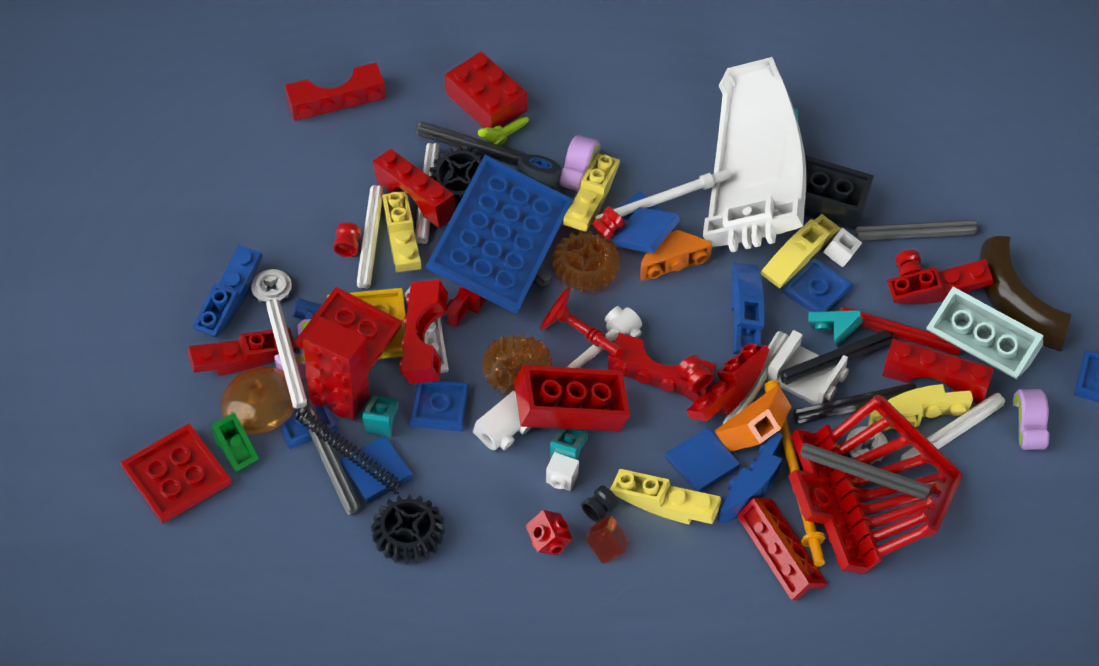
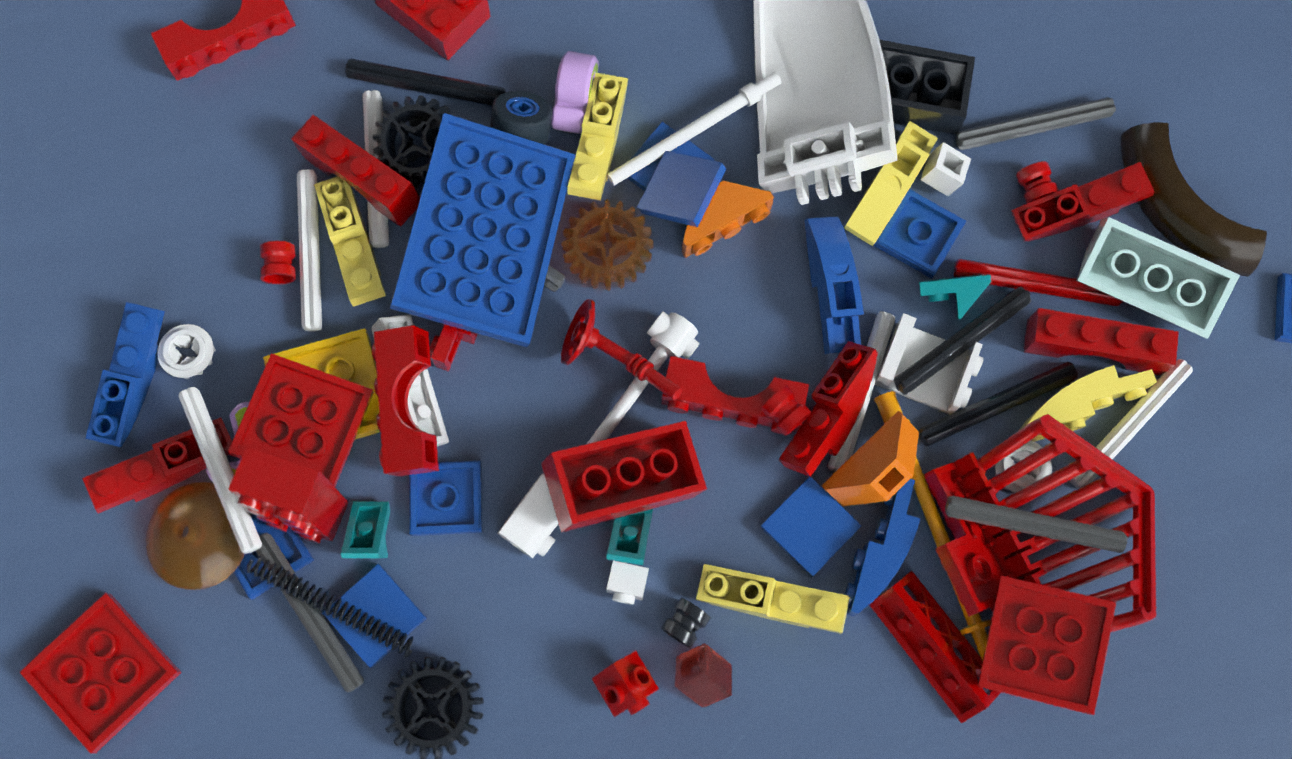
camera: 10 degrees left, 20 degrees up
(234, 442) = (172, 616): green slope -> none
(305, 309) = (239, 385): blue piece -> none
(498, 134) = (457, 63): lime piece -> none
(506, 357) = (537, 428): clear orange gear -> none
(608, 223) = (629, 185): red wheel -> none
(857, 543) = (1047, 644): none -> red plate
(1032, 418) = (1237, 393): lavender animal -> none

